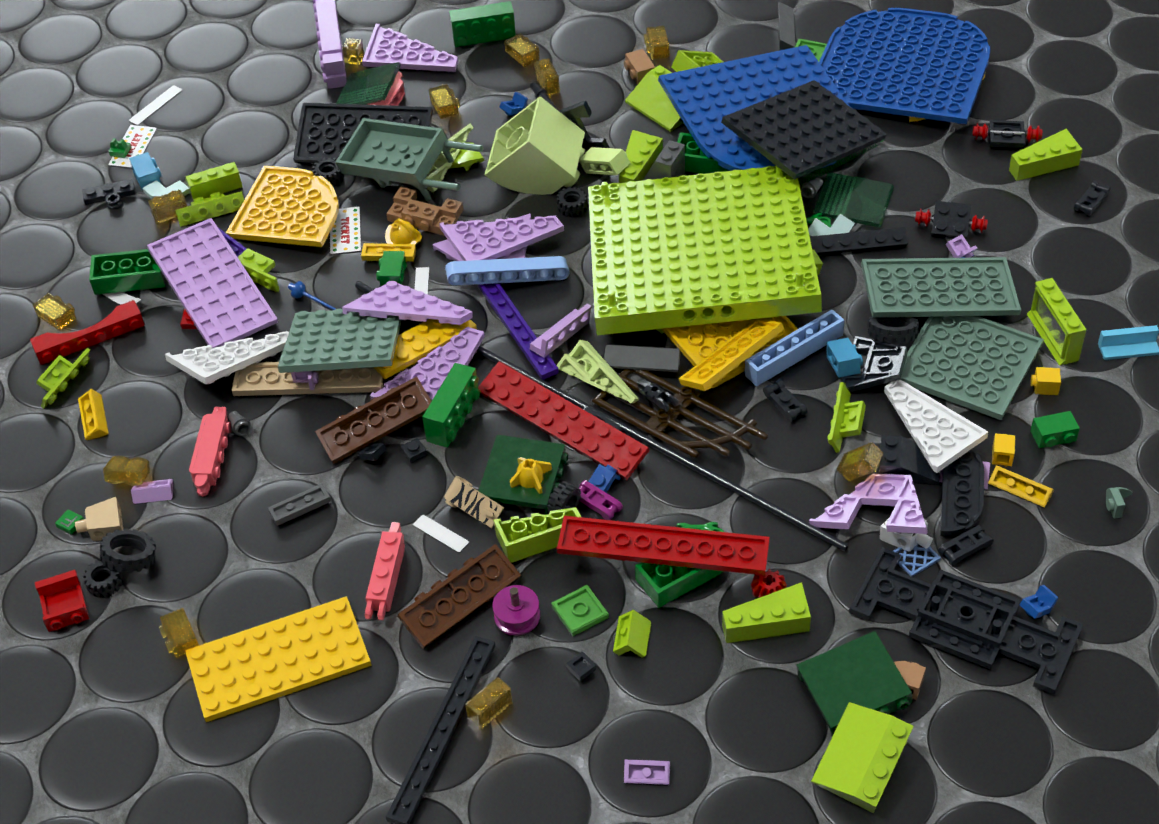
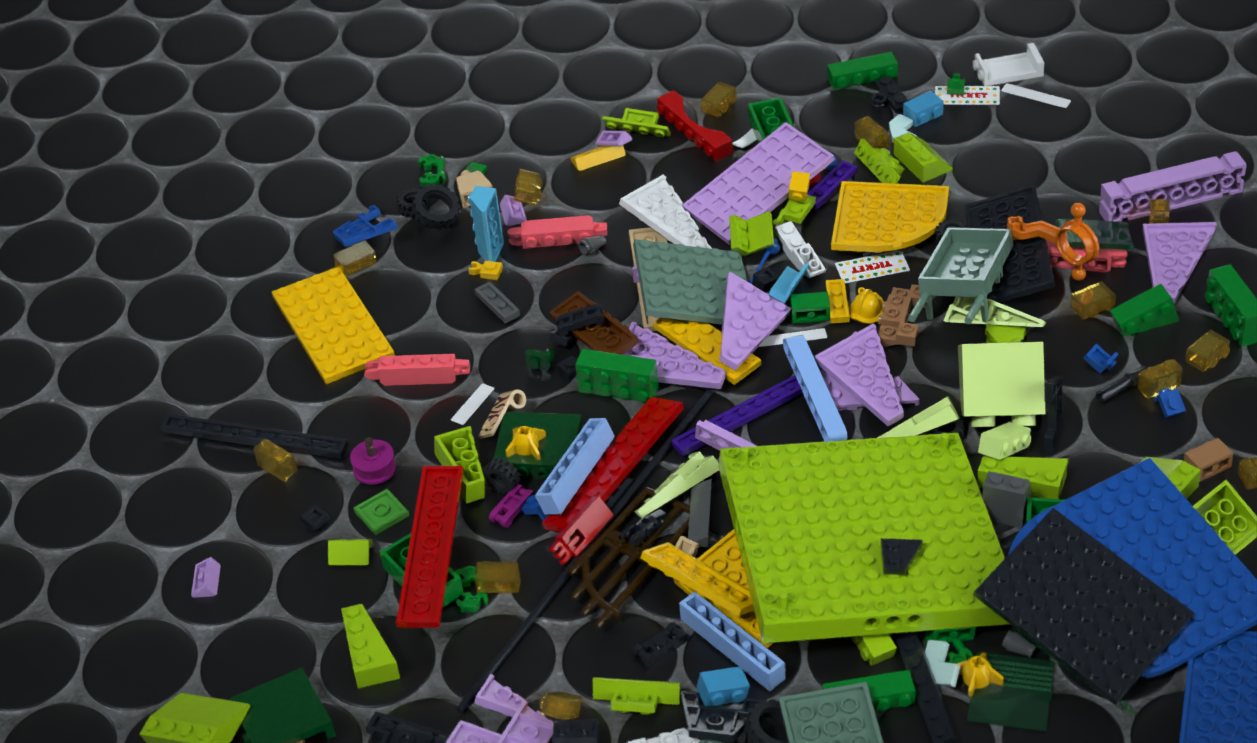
camera: 85 degrees right, 5 degrees down
(33, 562) = (430, 161): none -> green helmet
(62, 600) = (387, 188): red panel -> none
(65, 205) = (862, 70): none -> green brick
(81, 395) = (613, 138): none -> lavender slope
(110, 111) = (1010, 67): none -> white panel
(137, 628) = (361, 229): none -> blue wing
(201, 489) = (486, 222): none -> medium azure slope
(241, 512) = (488, 270): none -> yellow plate
(242, 247) = (799, 186): none -> yellow brick
(285, 291) = (751, 234): none -> lime bracket
(319, 270) = (798, 250): none -> white slope
(339, 297) = (765, 278): none -> black plate
(361, 273) = (787, 283): none -> medium azure panel
(366, 425) = (580, 318): none -> black plate
(367, 103) = (1059, 236): none -> orange piece
(400, 471) = (538, 359): none -> dark green plate
(458, 595) = (391, 421): reddish brown plate -> none
(471, 71) = (1145, 312): none -> green wedge
(568, 202) = (930, 418): none -> yellowish green wedge
(571, 75) = (1170, 402): none -> blue bracket
(573, 436) = (574, 466): none -> light blue brick
(647, 441) = (589, 522): none -> red hinge
(680, 369) = (687, 546): none -> tan slope
(695, 508) = (497, 577): none -> clear yellow brick
(745, 217) = (898, 554): none -> black wing
(768, 583) = (405, 645): red gear -> none
(843, 206) = (978, 673): none -> yellow piece
(851, 257) = (885, 690): none -> green brick

